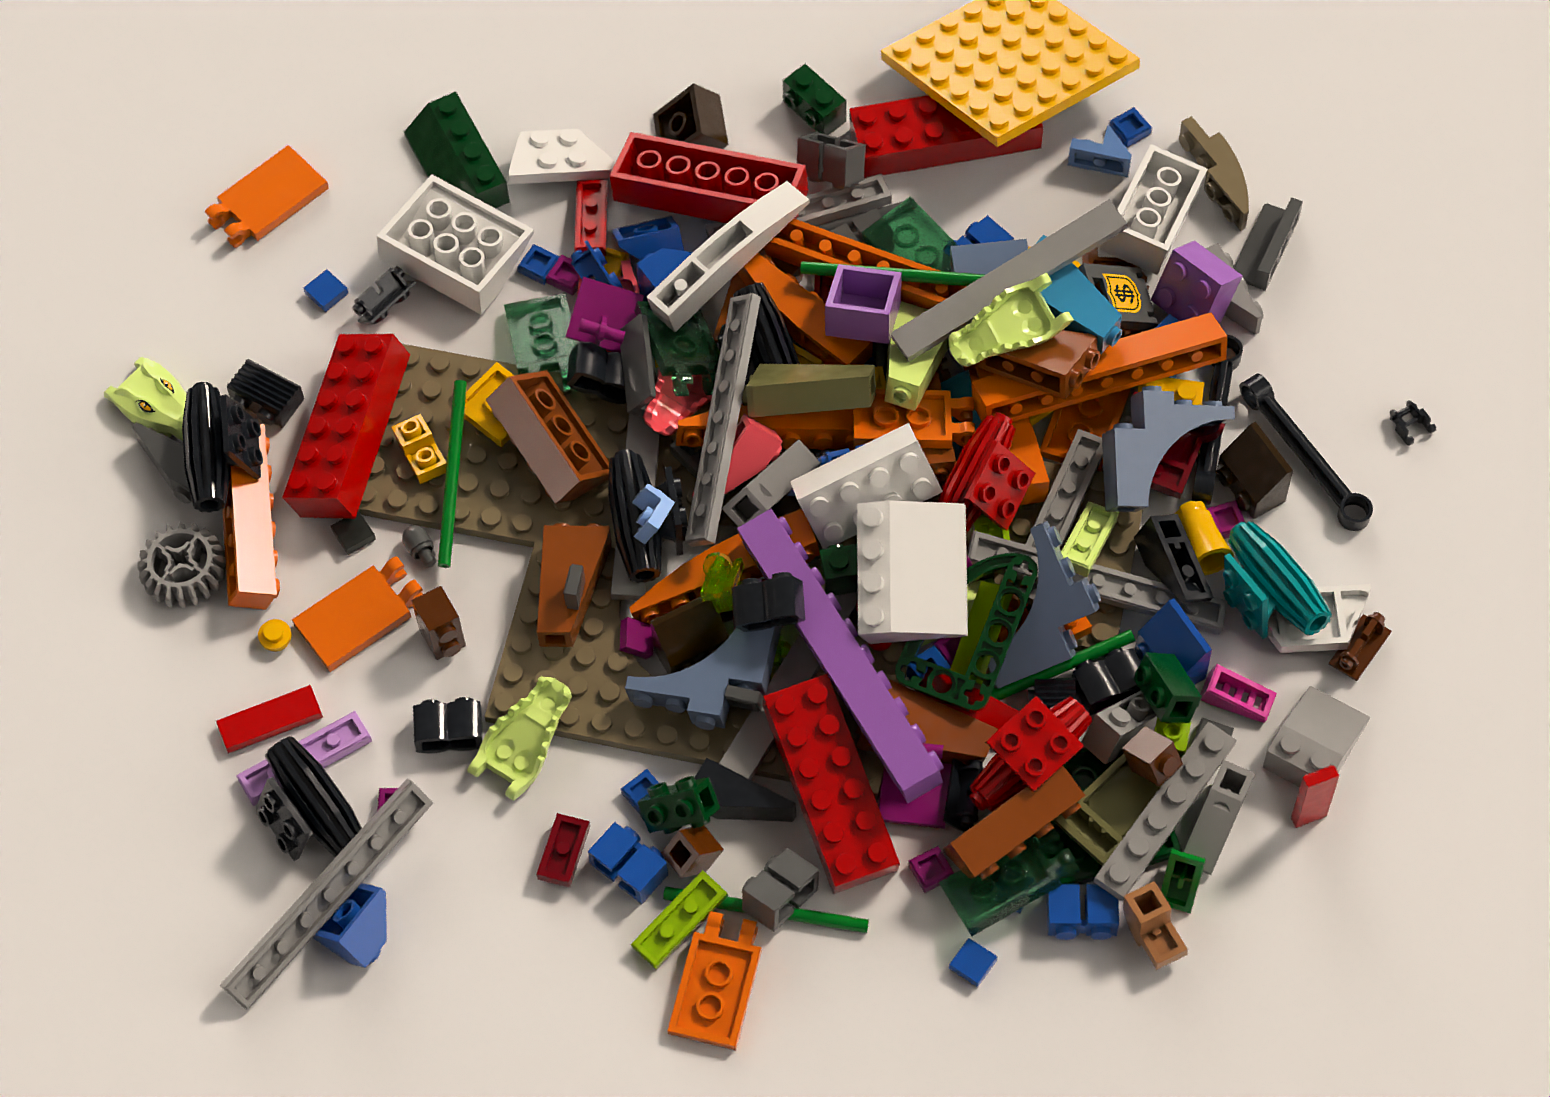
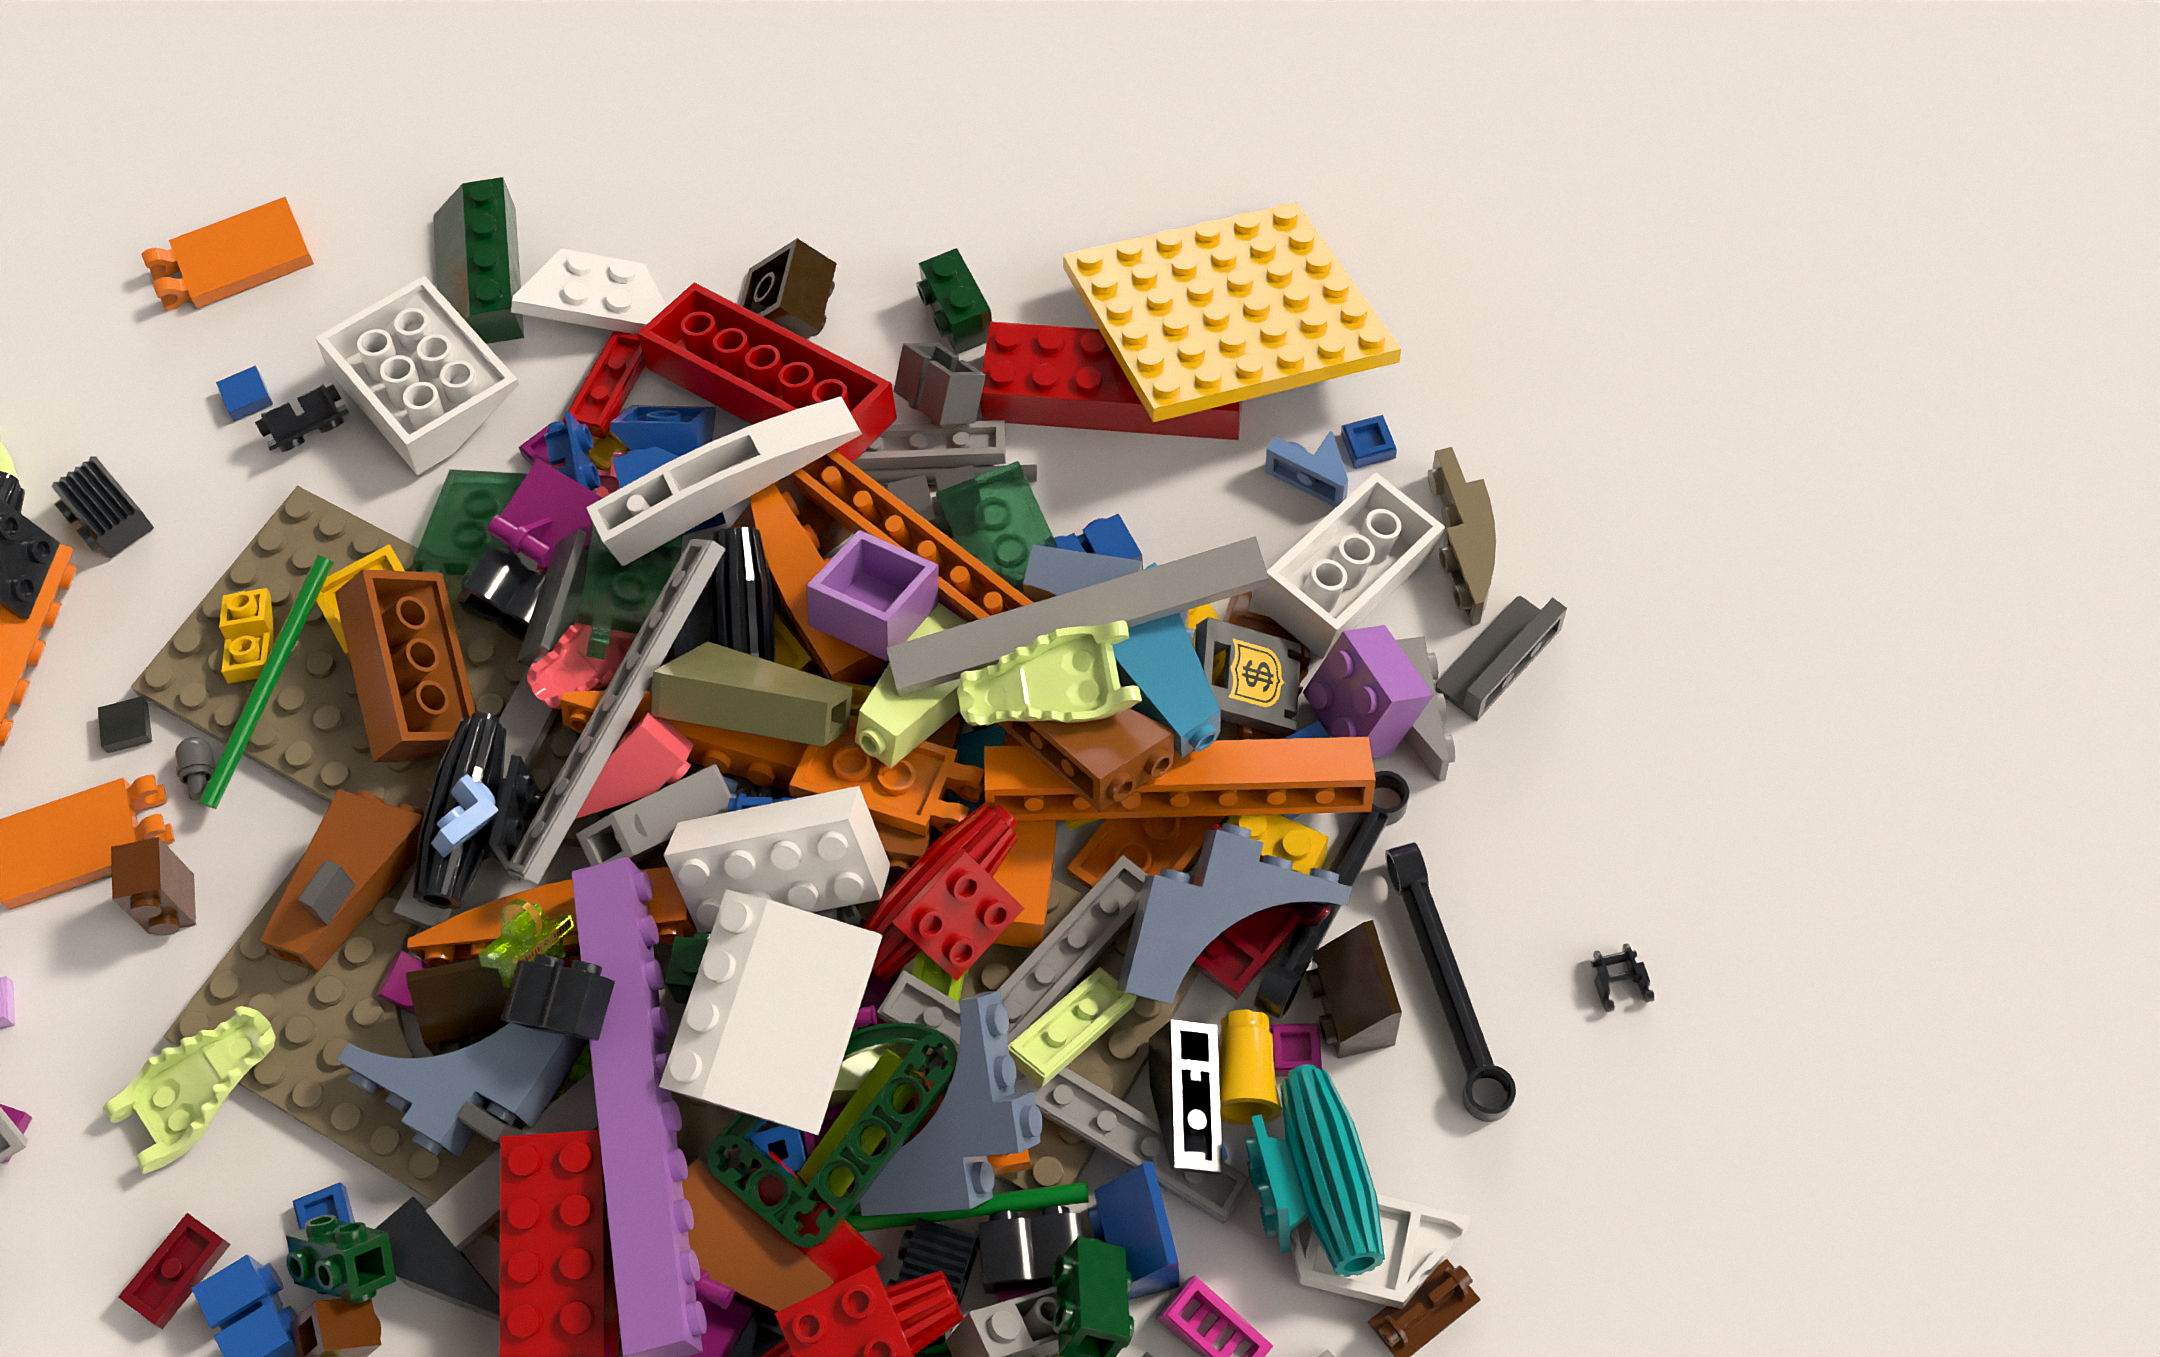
camera: 20 degrees right, 0 degrees up
(346, 426) = (169, 579): red brick -> none
(447, 725) = (107, 1035): black brick -> none
(537, 264) = (517, 425): blue tile -> none
(908, 275) = (946, 568): green piece -> none

